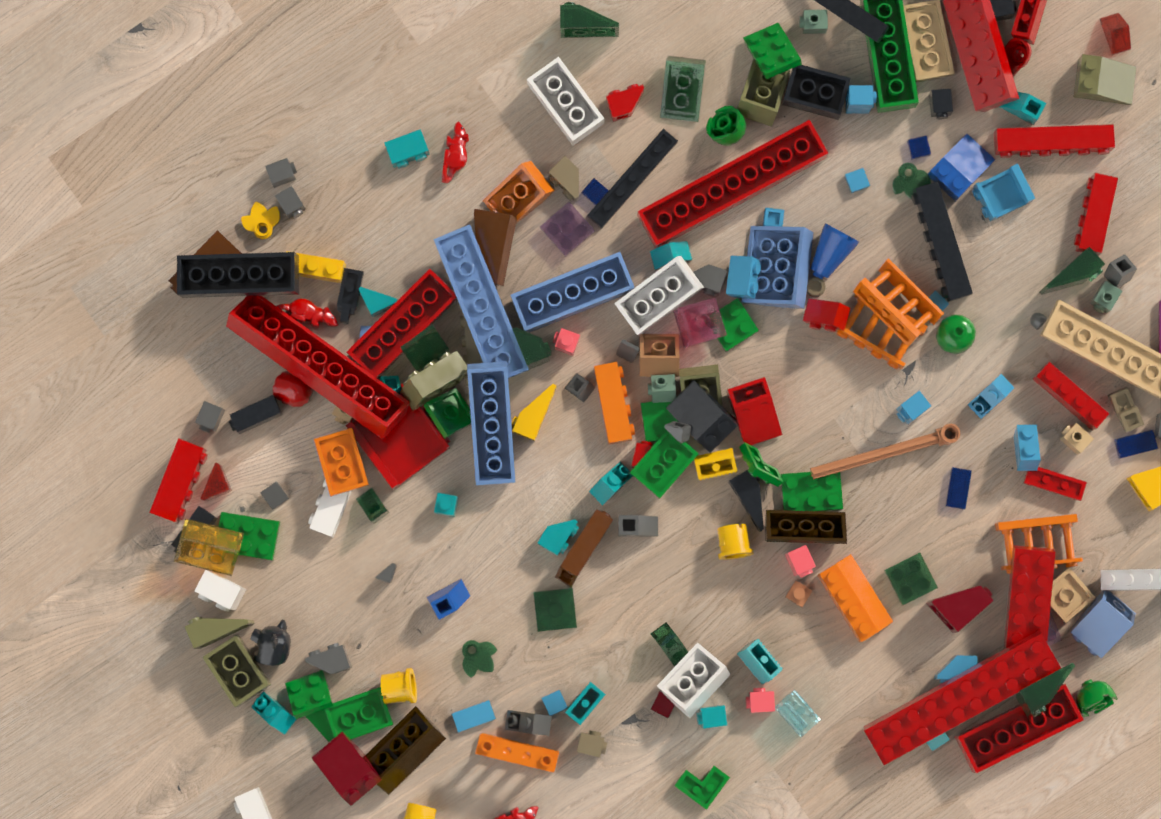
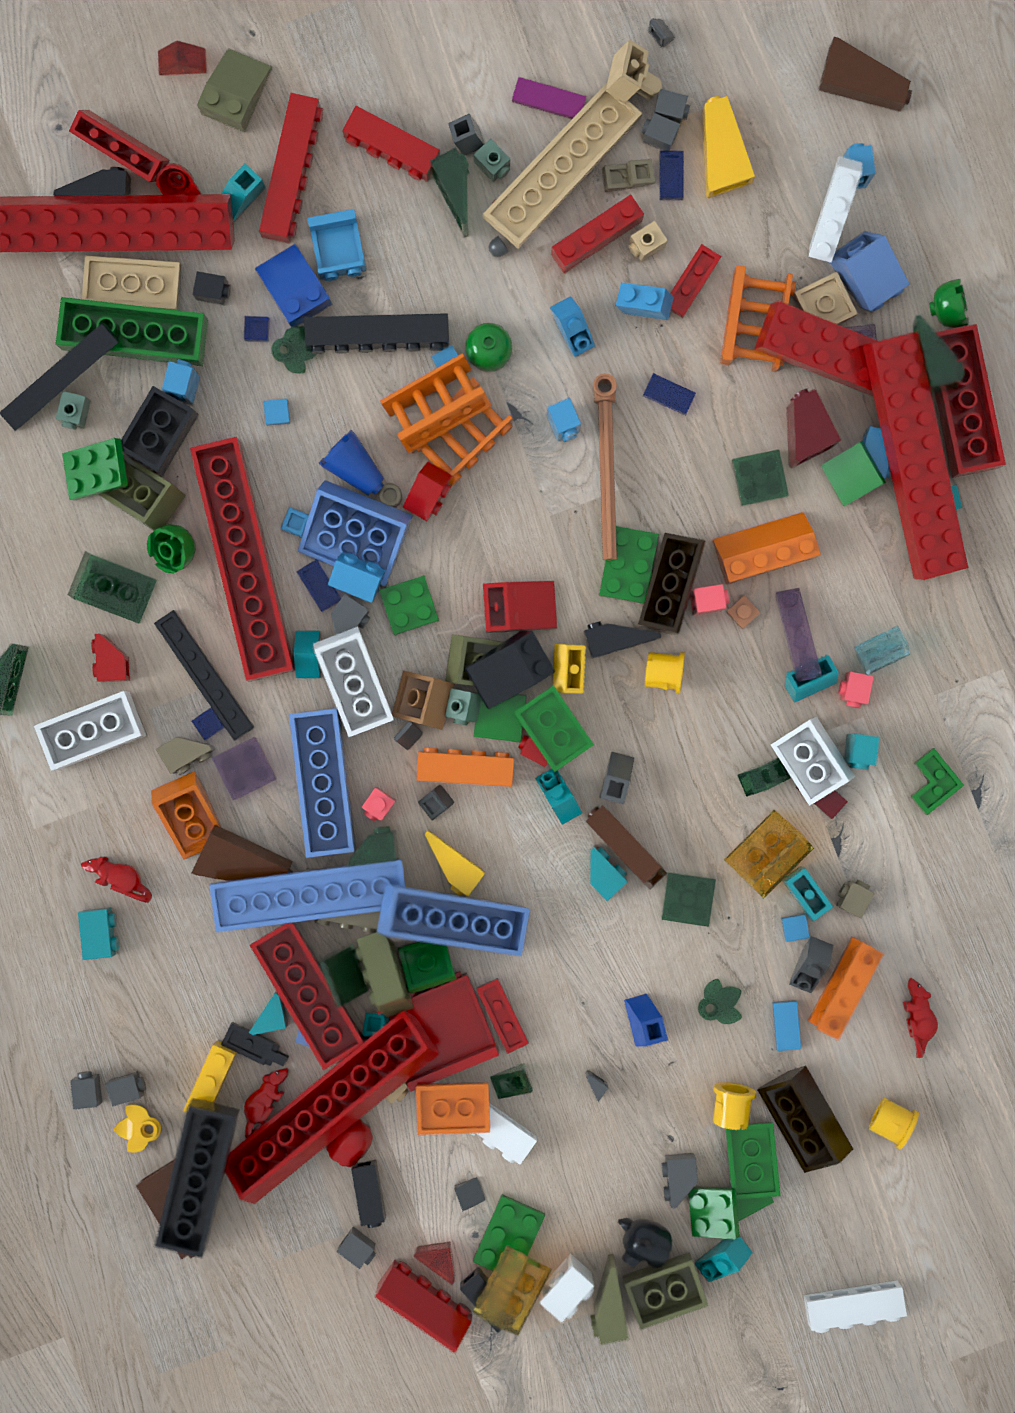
camera: 80 degrees left, 5 degrees up
(346, 768) = (813, 1192): dark red slope -> none
(423, 484) = (502, 1015): none -> red plate
(446, 504) = (534, 995): teal brick -> none
(608, 665) = (769, 853): none -> clear yellow slope
(679, 431) = (520, 701): dark grey slope -> none
(699, 323) = (397, 642): clear pink slope -> none
(731, 246) = (317, 585): none -> clear blue tile
(758, 467) = (586, 620): green plate -> none
(792, 641) = (798, 634): none -> clear purple plate
(935, 652) = (853, 473): none -> green tile

